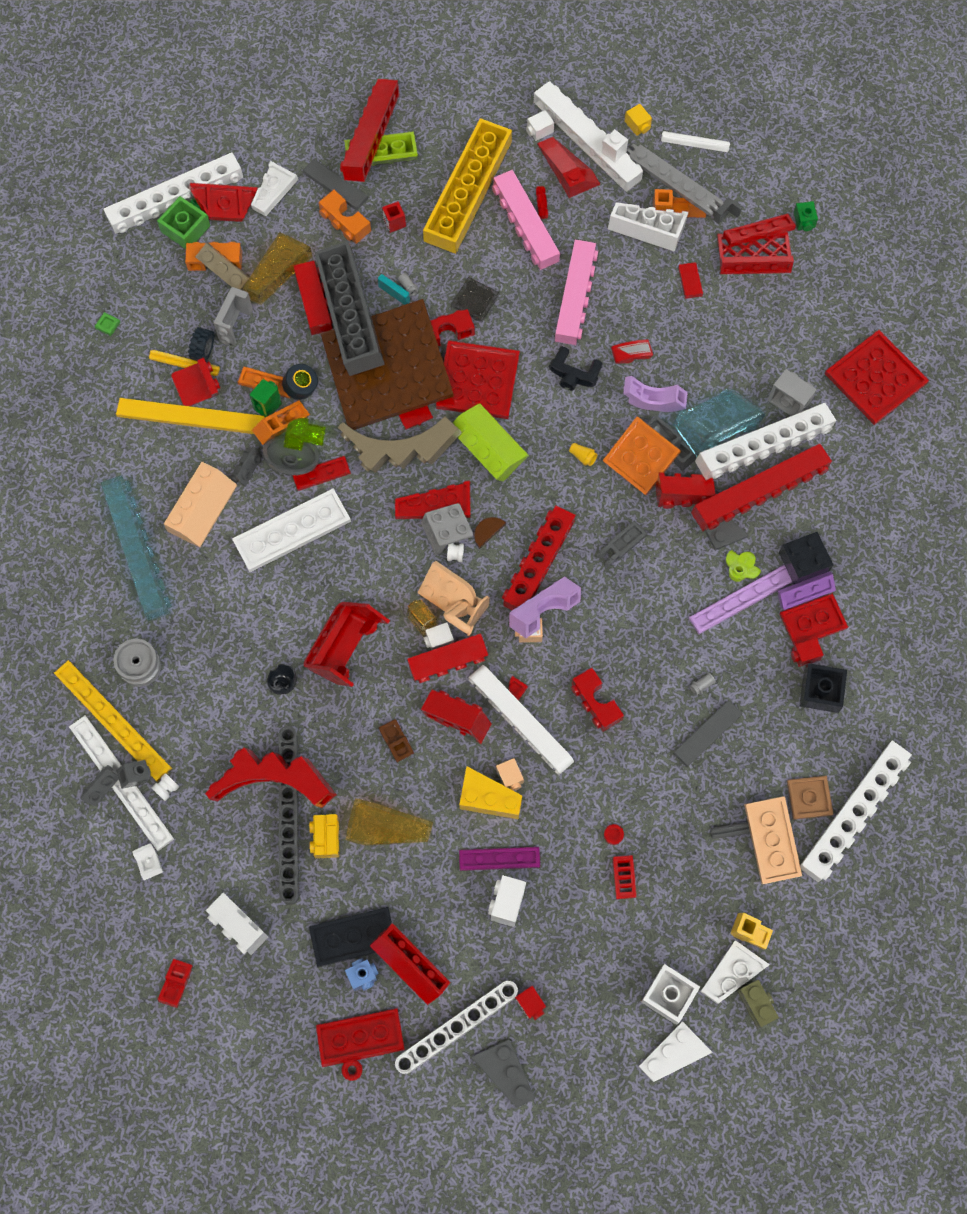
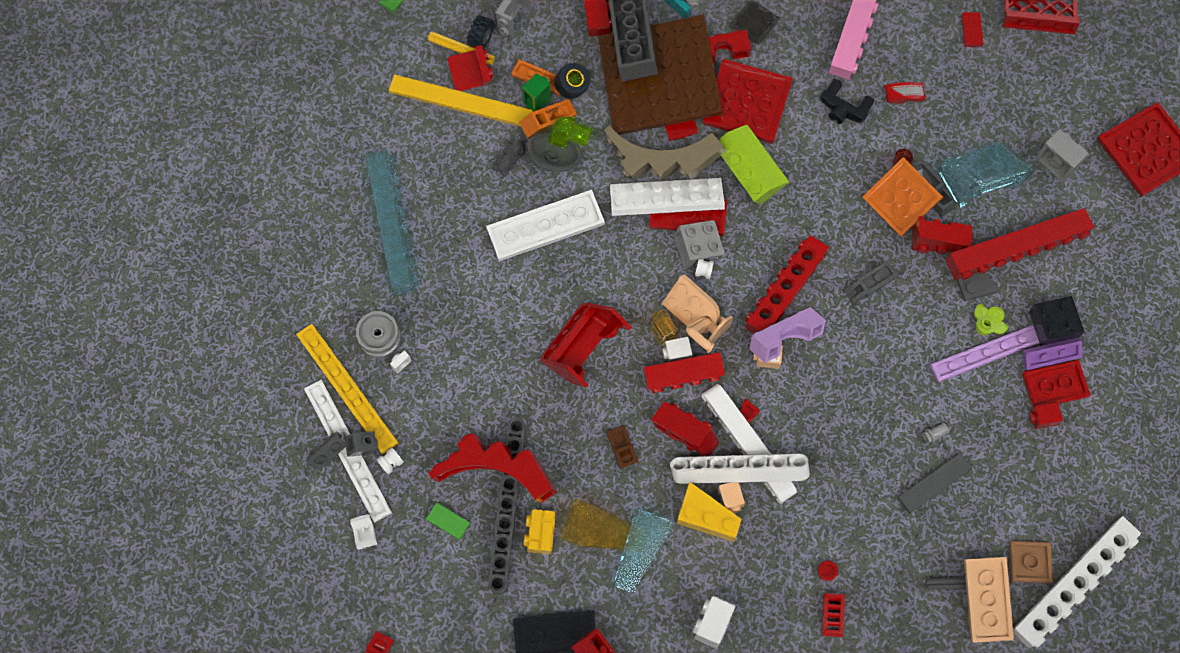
camera: 10 degrees right, 0 degrees up
(162, 686) = (400, 361): none -> white plate
(200, 504) = (459, 188): light nougat slope -> none
(231, 839) = (448, 521): none -> bright green tile
(236, 924) = (442, 606): white wedge -> none
(281, 674) = (519, 365): black hair -> none
(322, 473) = (583, 173): red tile -> none
(409, 485) = (667, 196): none -> white plate
(428, 834) = (642, 545): none -> clear light blue wing
(487, 529) = (738, 250): reddish brown tile -> none
(499, 858) = (710, 578): magenta tile -> none
(514, 746) = (740, 468): none -> white beam
(584, 454) = (844, 188): yellow cone -> none
(603, 715) = (832, 449): red arch -> none
(640, 412) = (902, 153): none -> clear red wheel
(656, 399) = (921, 142): lavender arch -> none
(819, 415) = (1043, 196): white brick -> none
(823, 688) = (1058, 453): black brick -> none

